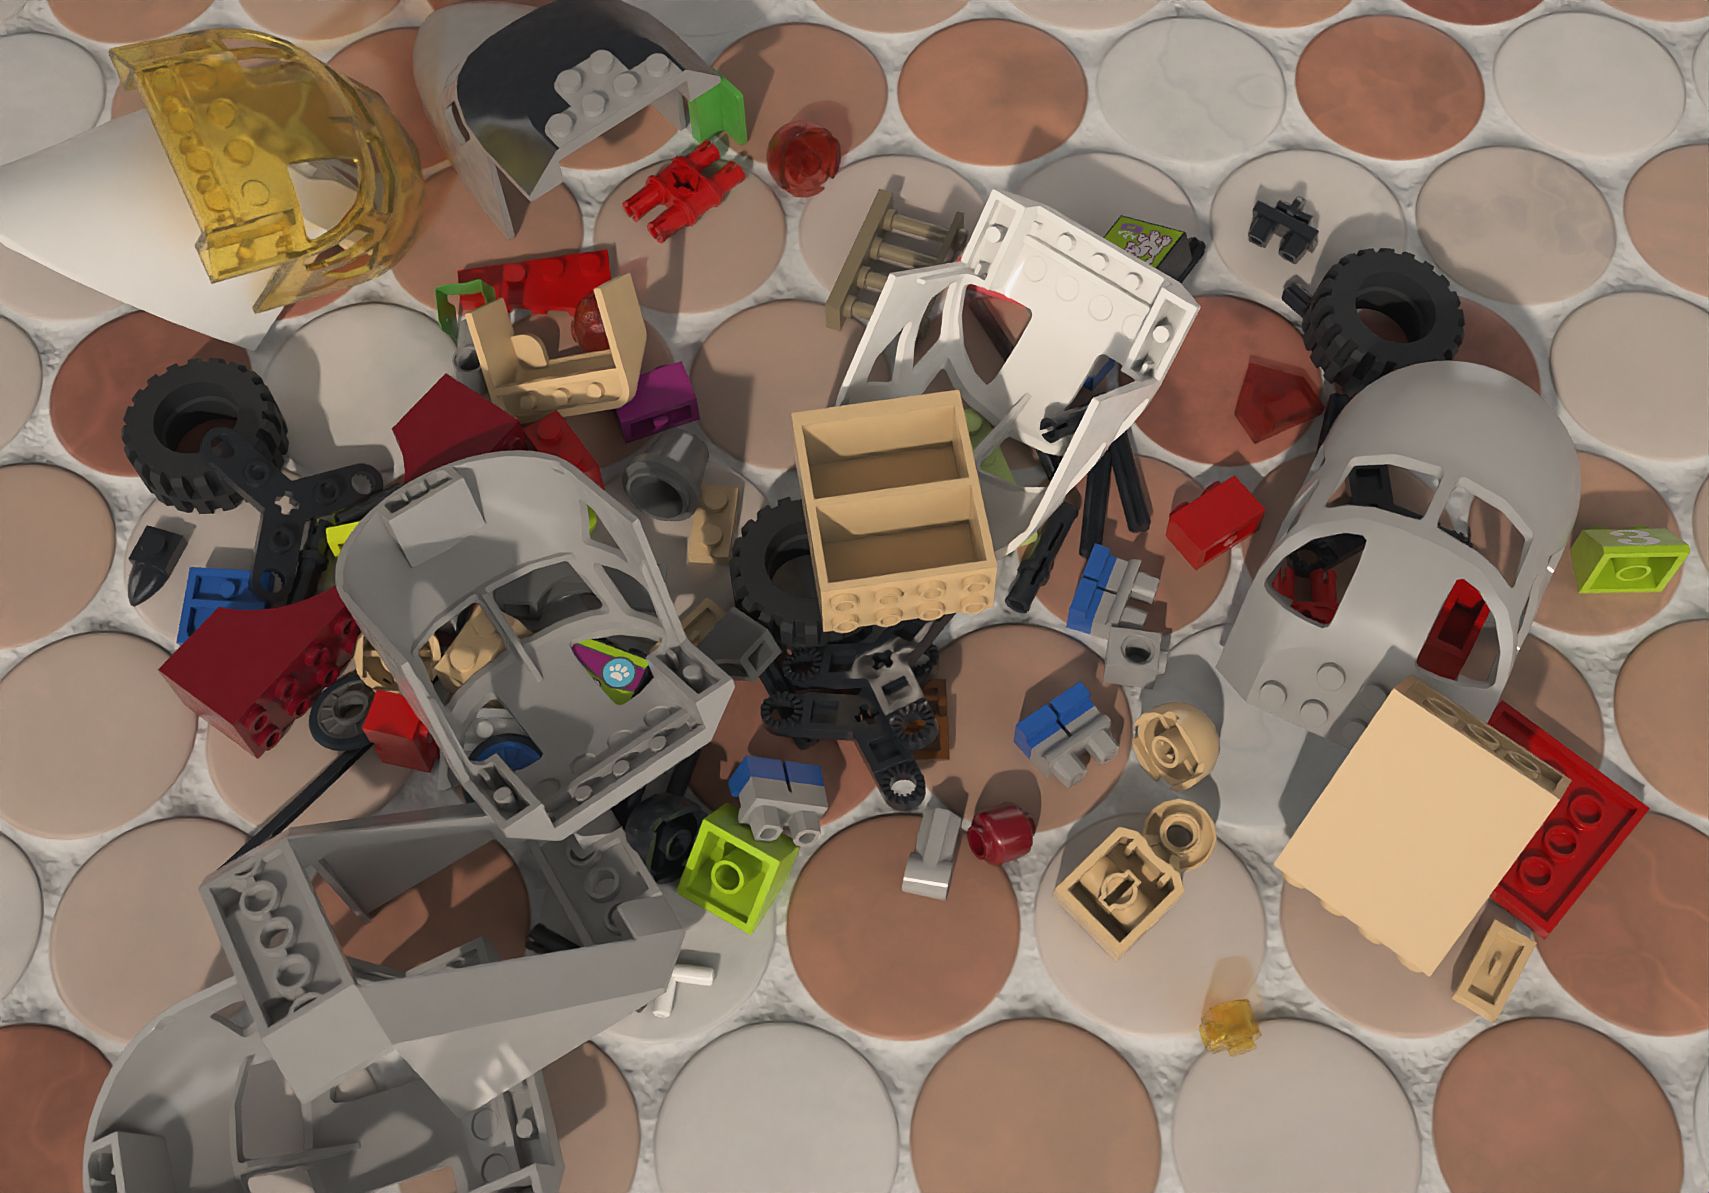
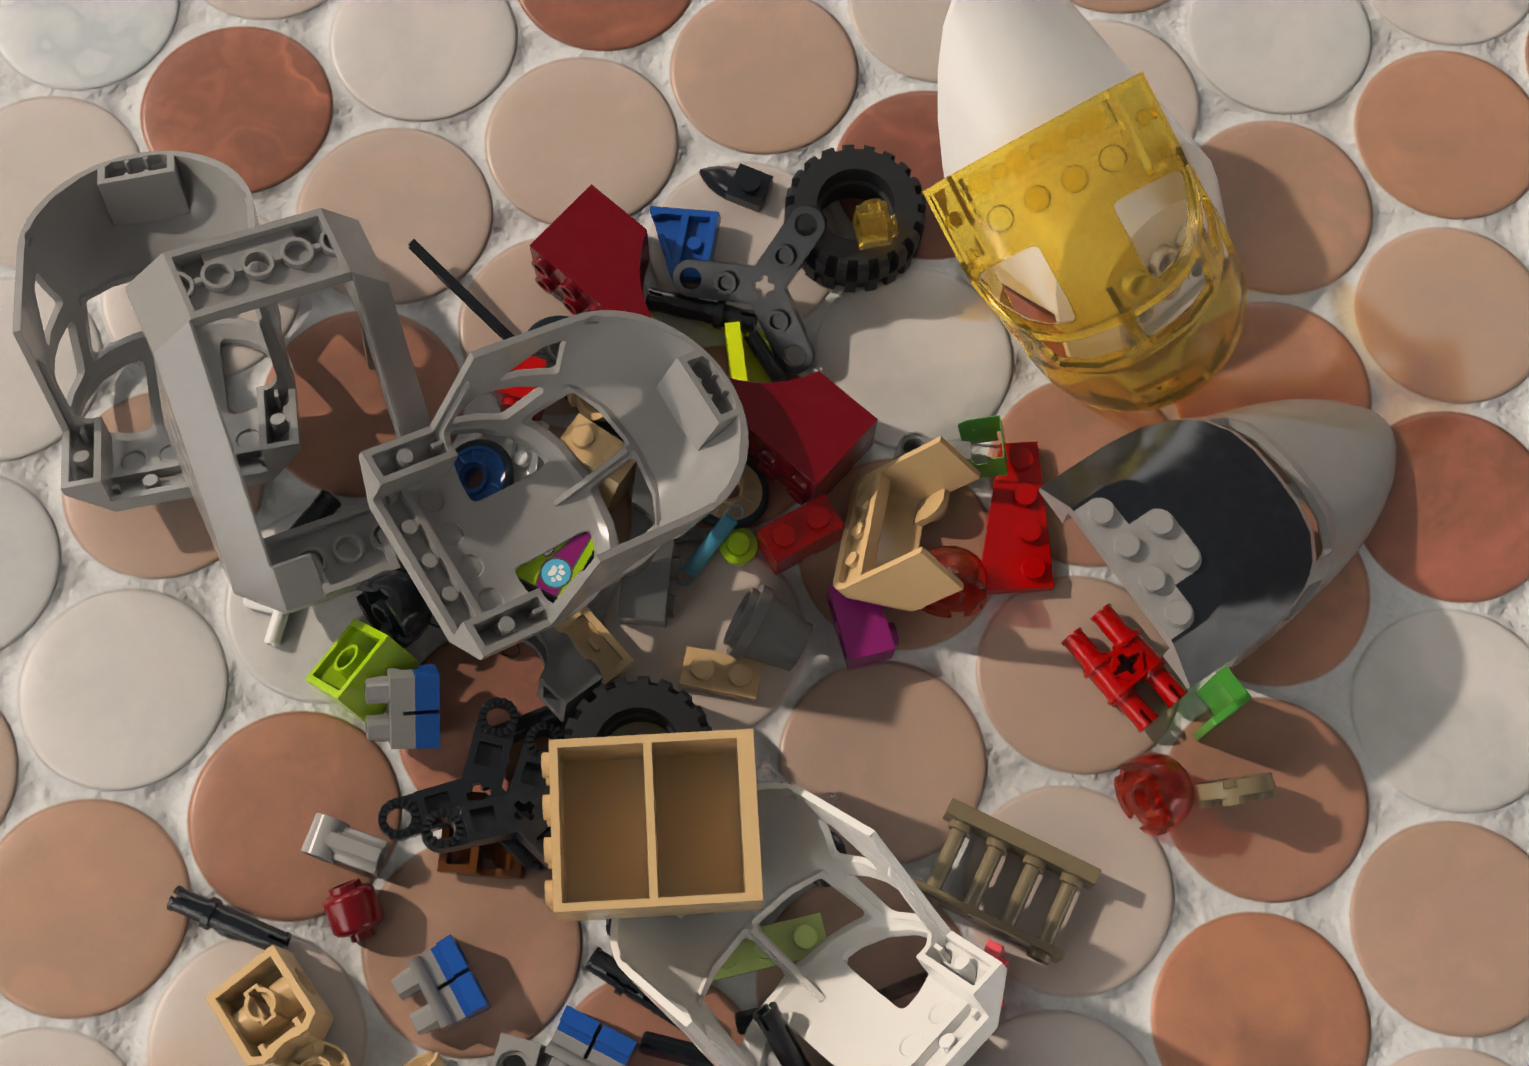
camera: 90 degrees right, 10 degrees up
(225, 388) = (874, 224): none -> clear yellow plate
(794, 90) = (1234, 790): none -> dark tan plate
(1025, 980) = (224, 919): none -> black pin

